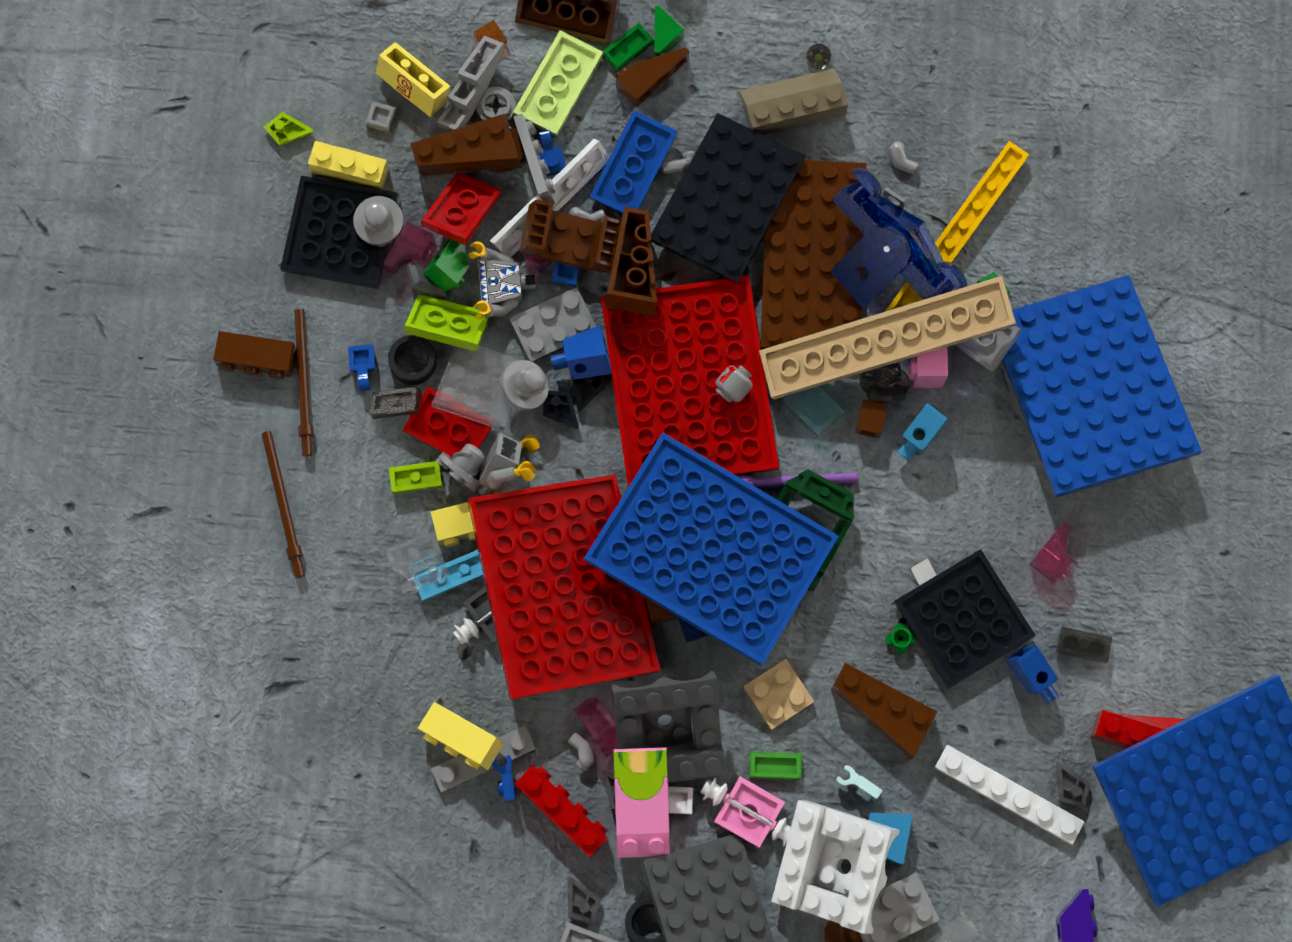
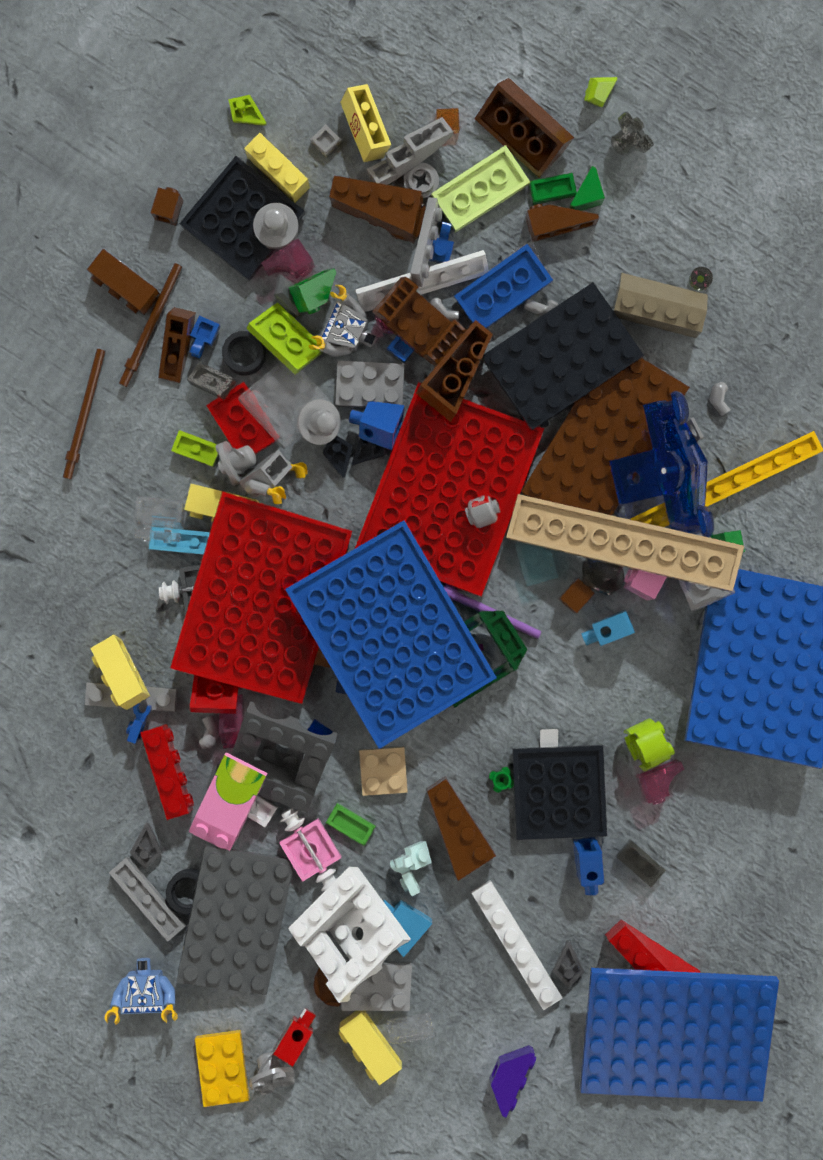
camera: 30 degrees right, 10 degrees up
(258, 258) = (167, 205): none -> reddish brown brick
(340, 387) = (176, 343): none -> reddish brown slope
(461, 208) = (346, 251): red plate -> none
(567, 708) = (213, 696): none -> red plate
(858, 759) = (415, 858): none -> light aqua plate
(1023, 522) = (648, 743): none -> lime brick

